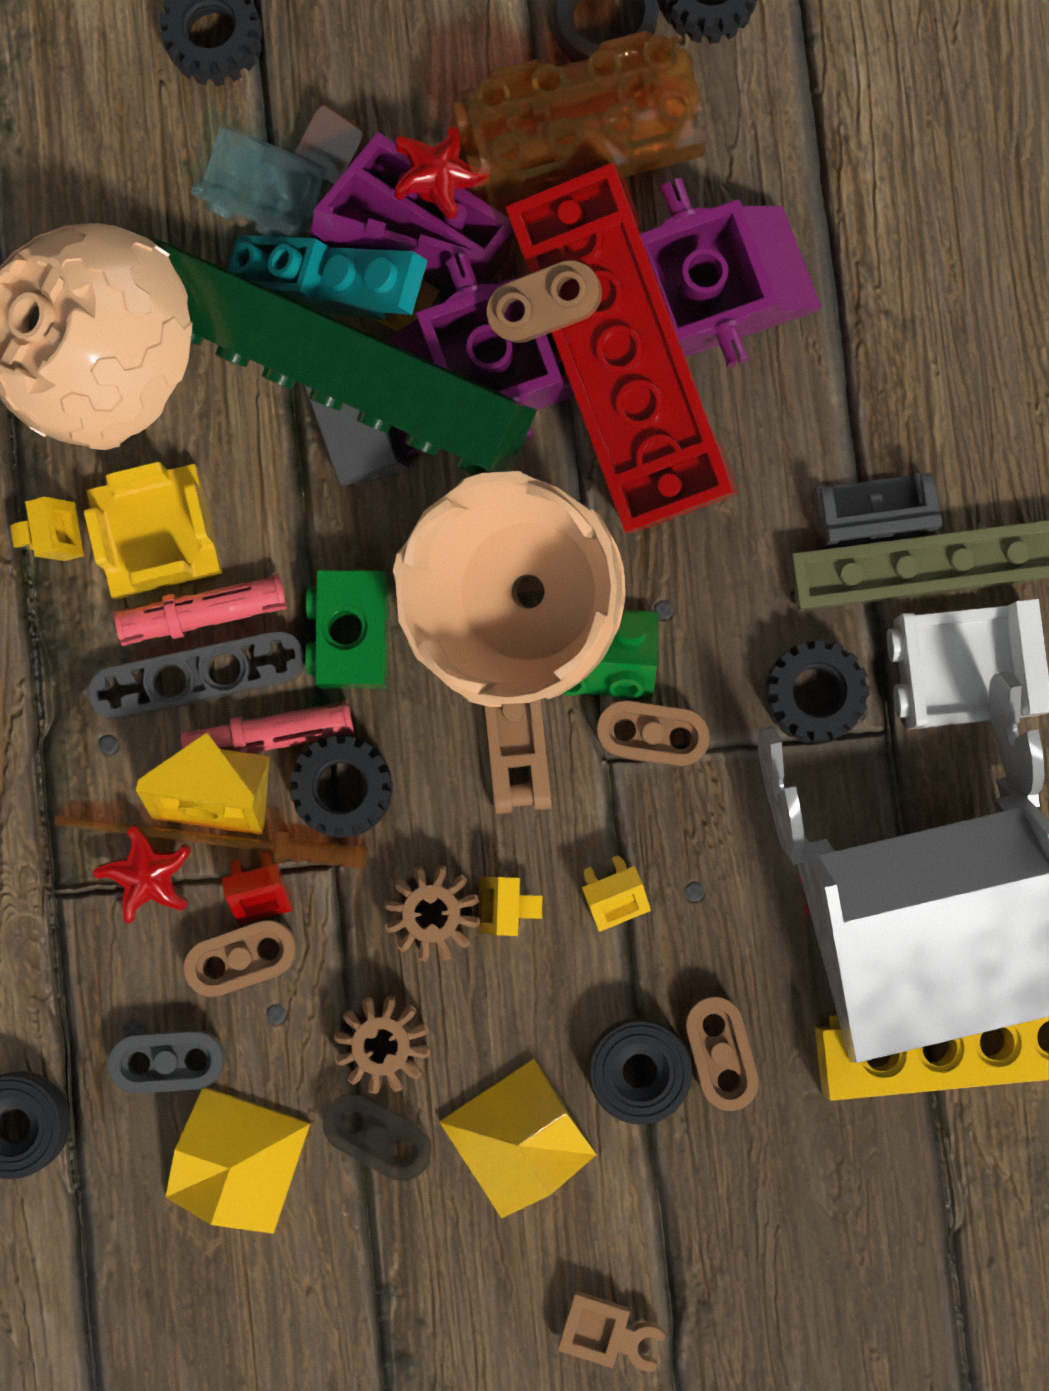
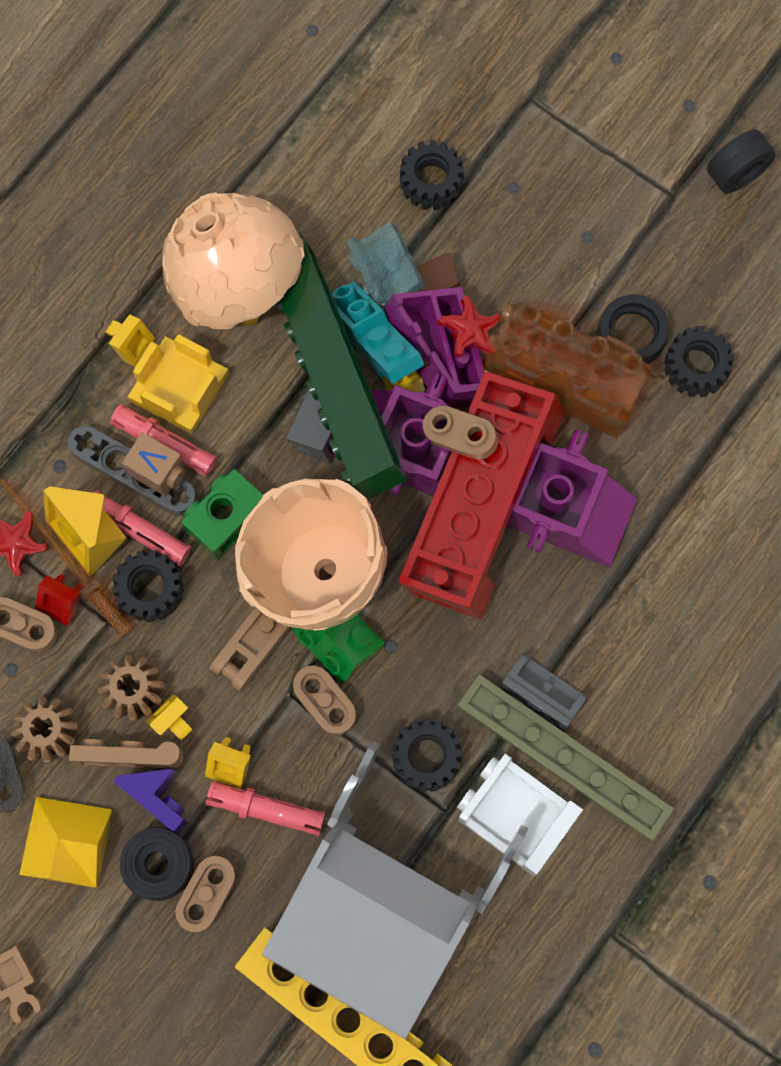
camera: 45 degrees right, 10 degrees down
(223, 646) = (154, 464): none -> medium nougat brick
(499, 986) = (129, 755): none -> medium nougat plate
(554, 1008) = (148, 788): none -> dark purple slope
(688, 911) = (257, 806): none -> coral pin

